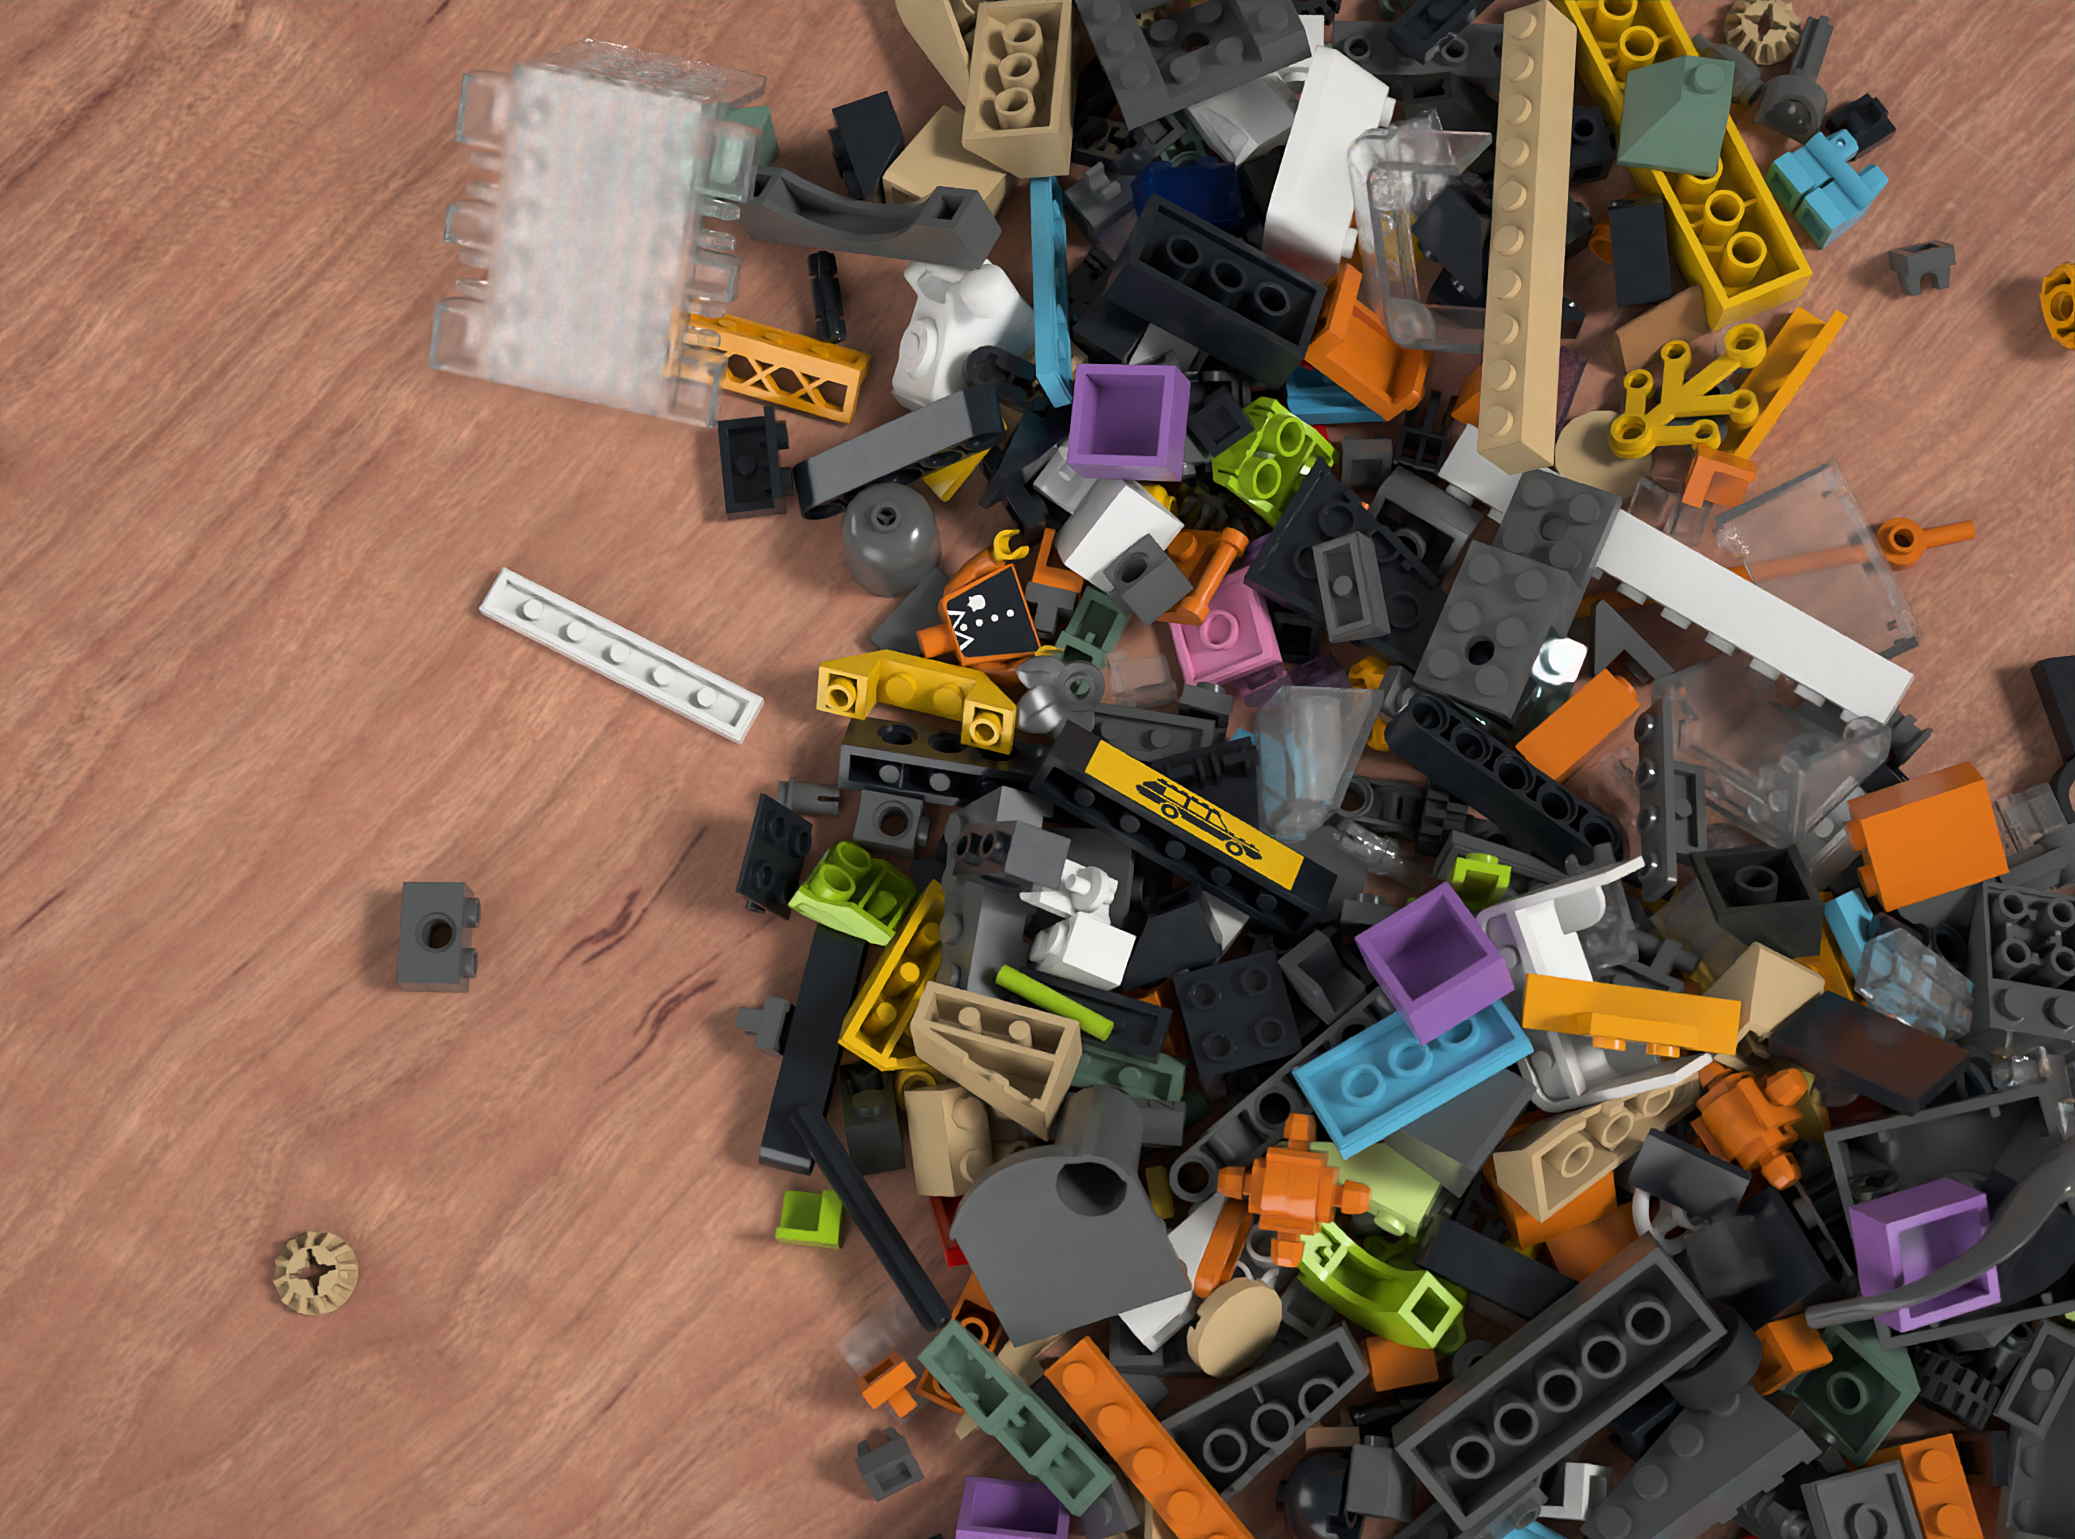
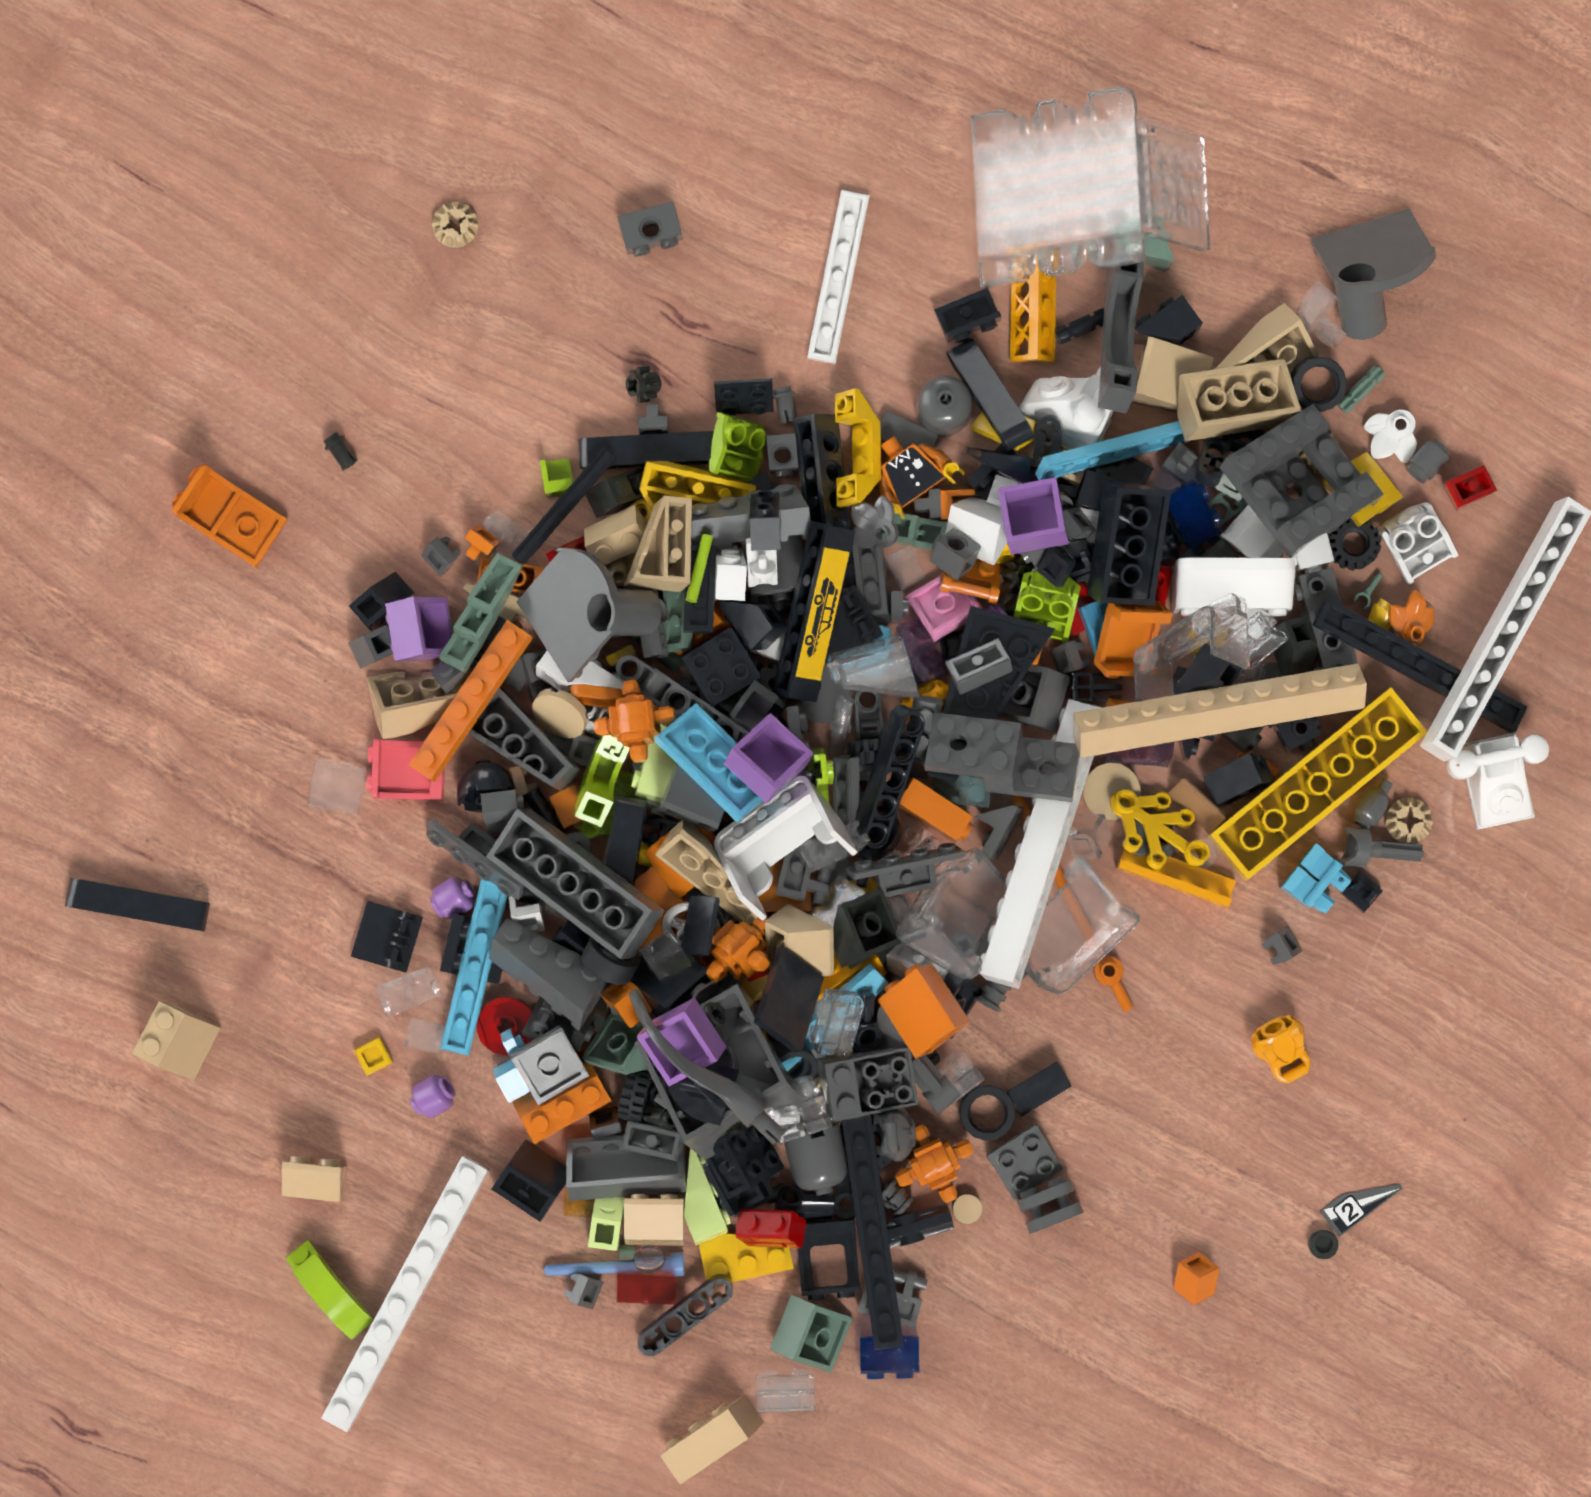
camera: 70 degrees right, 10 degrees up
(698, 1023) = (643, 384): none -> pearl dark grey gear
(1630, 1014) = (770, 869): light orange bracket -> none
(1676, 115) = (1318, 776): sand green slope -> none
(1716, 478) = (1109, 853): orange panel -> none

